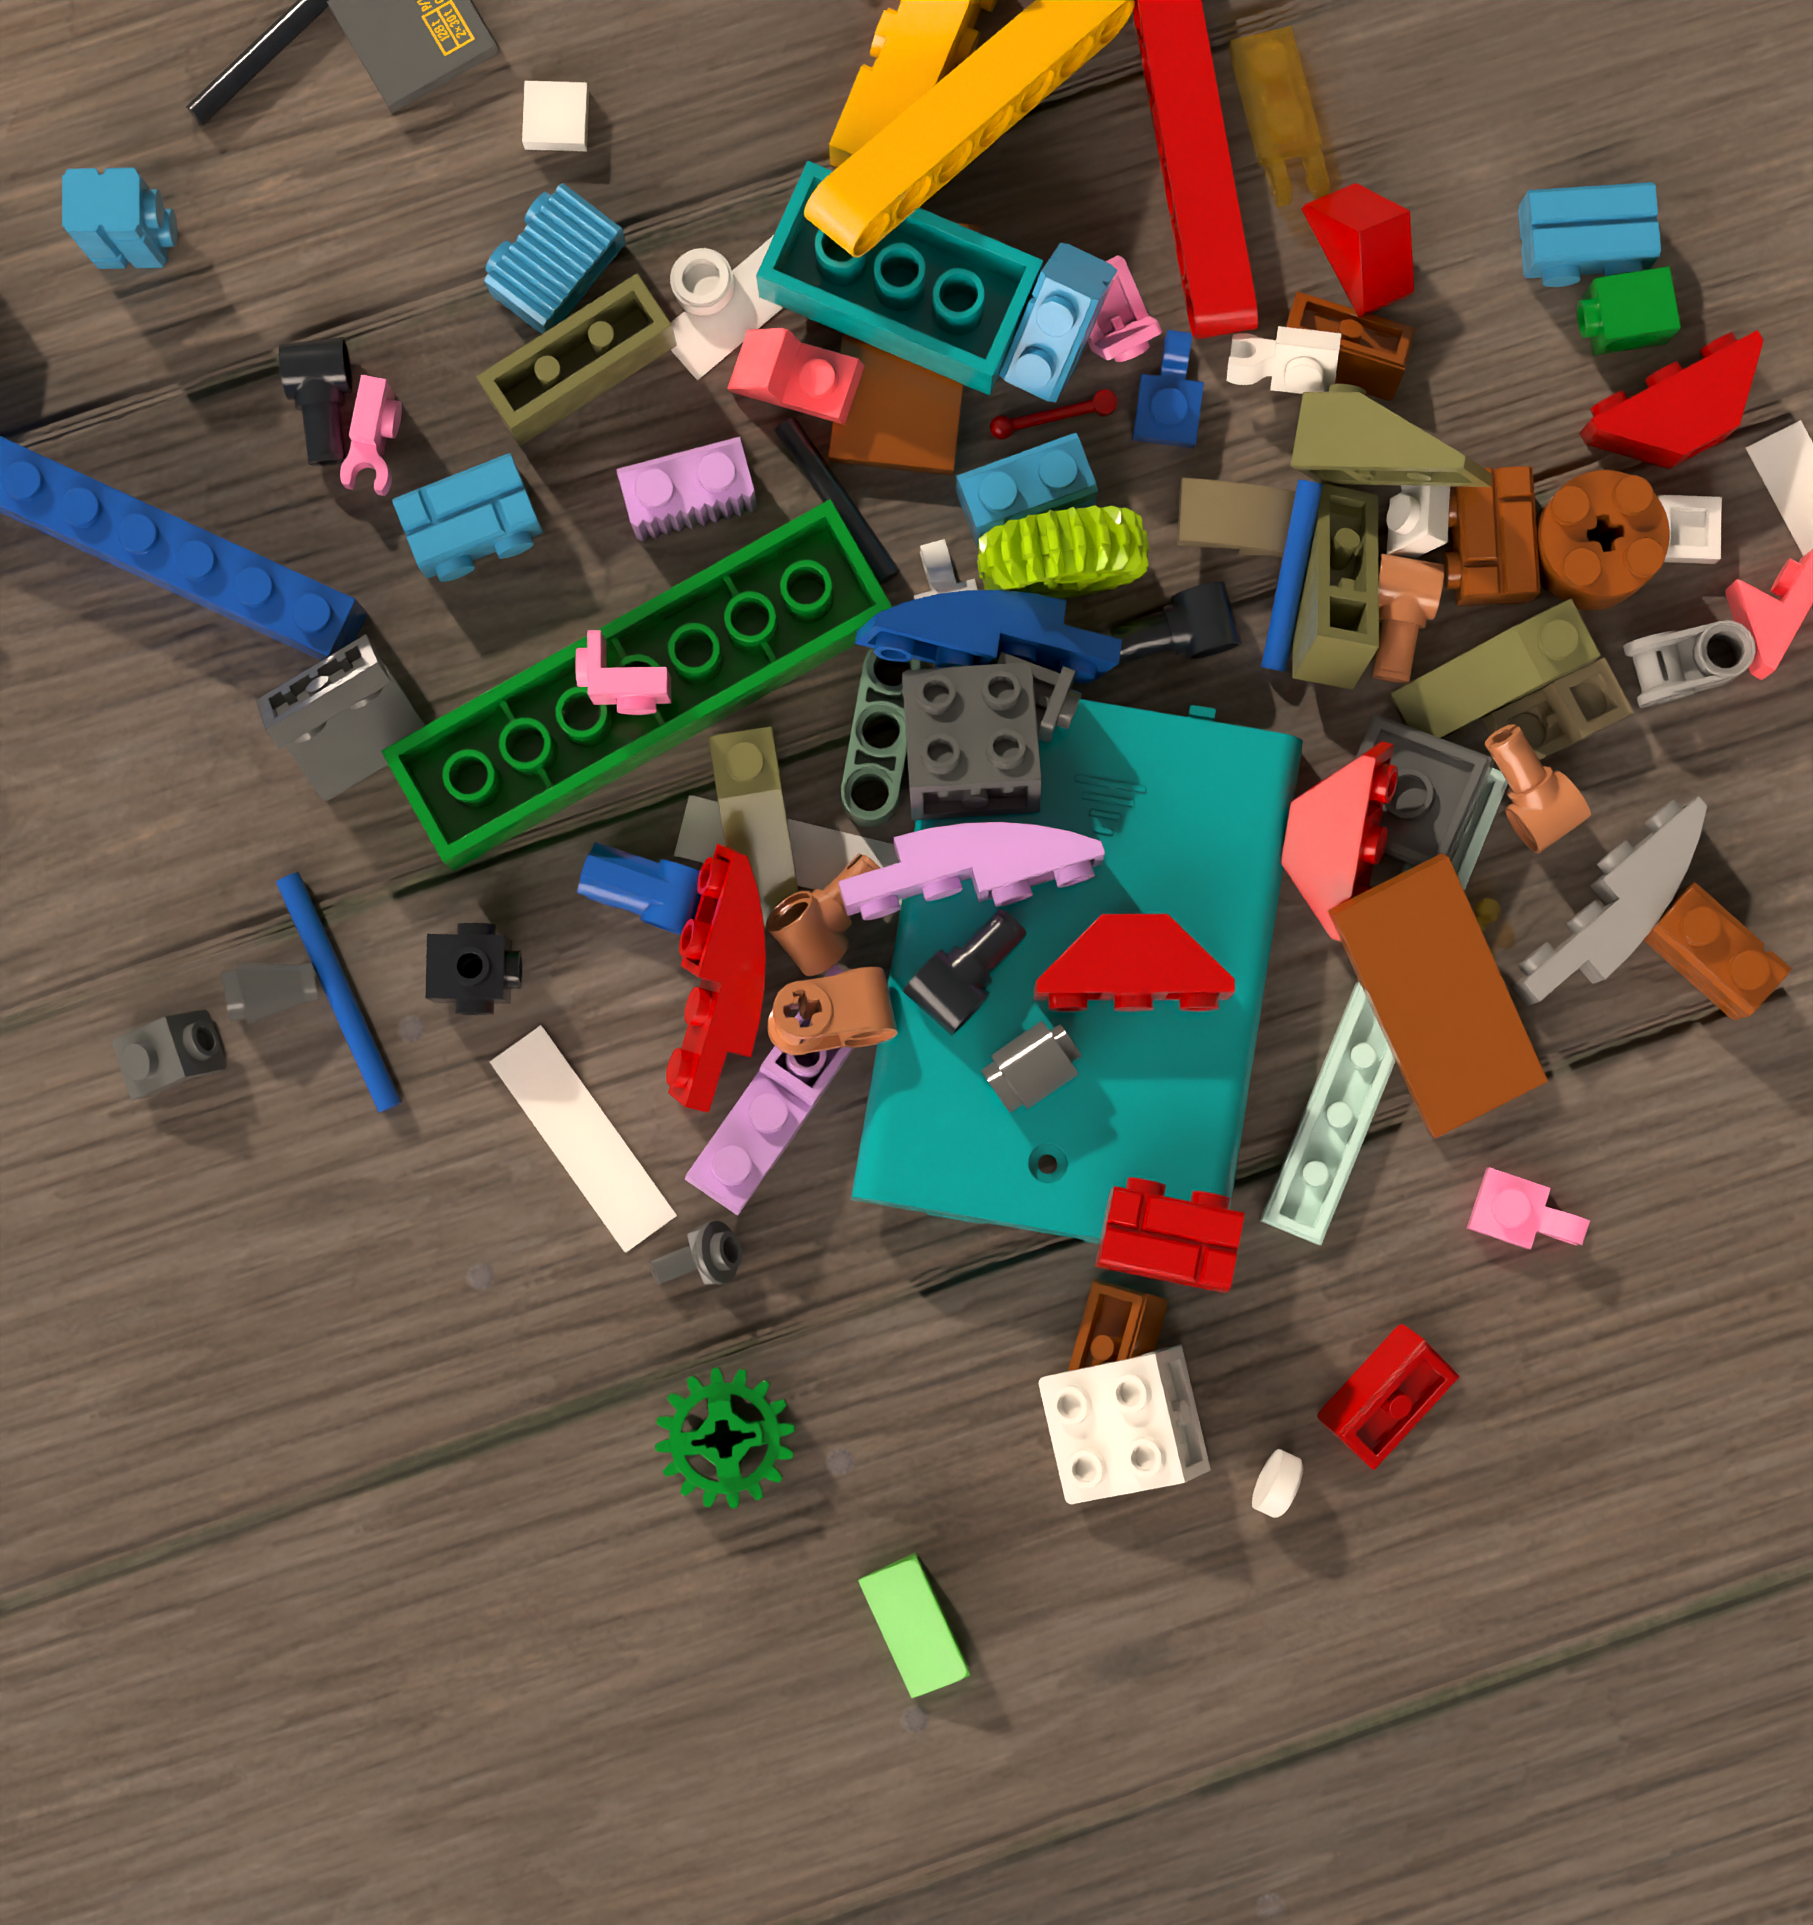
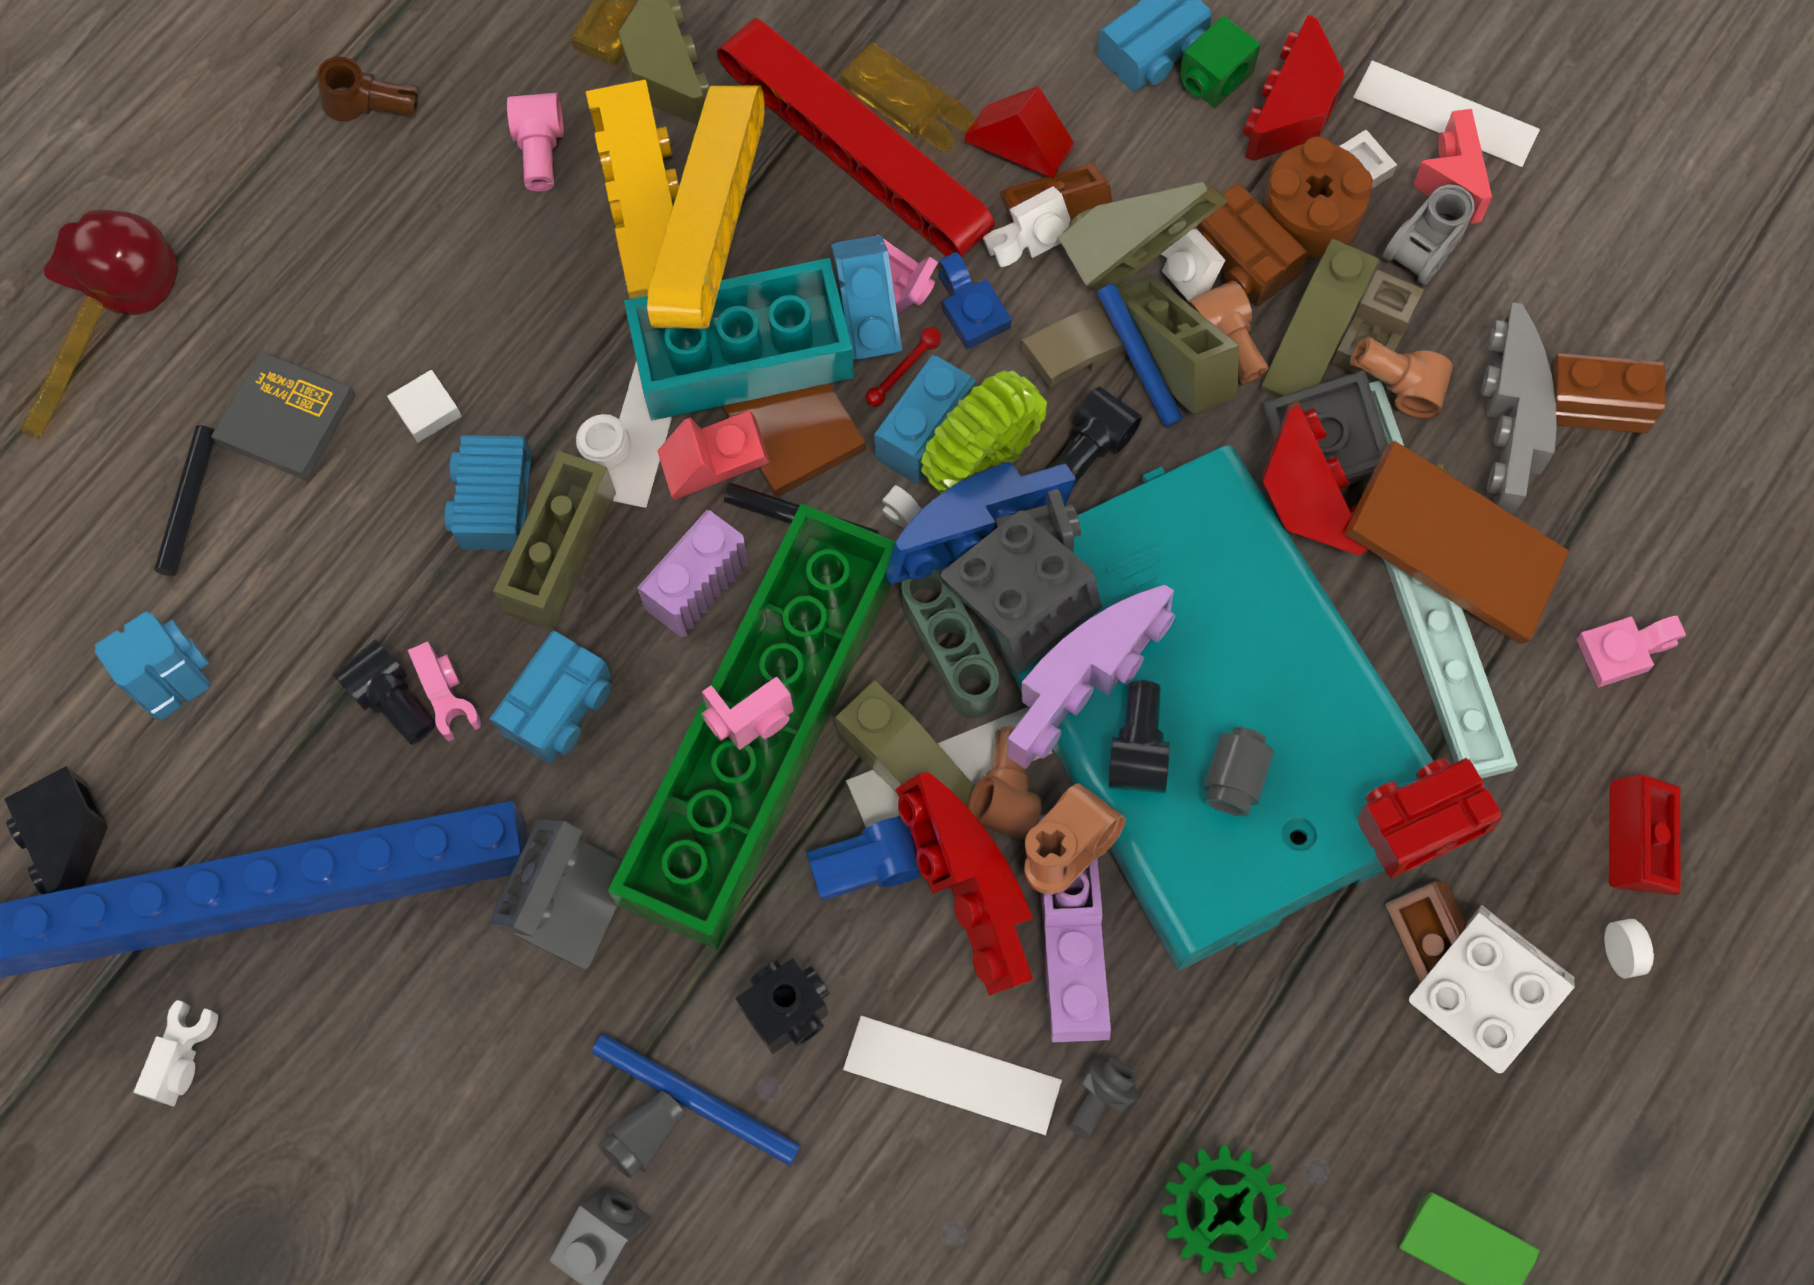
camera: 35 degrees left, 15 degrees down
(1133, 964) = (1251, 653): red slope -> none

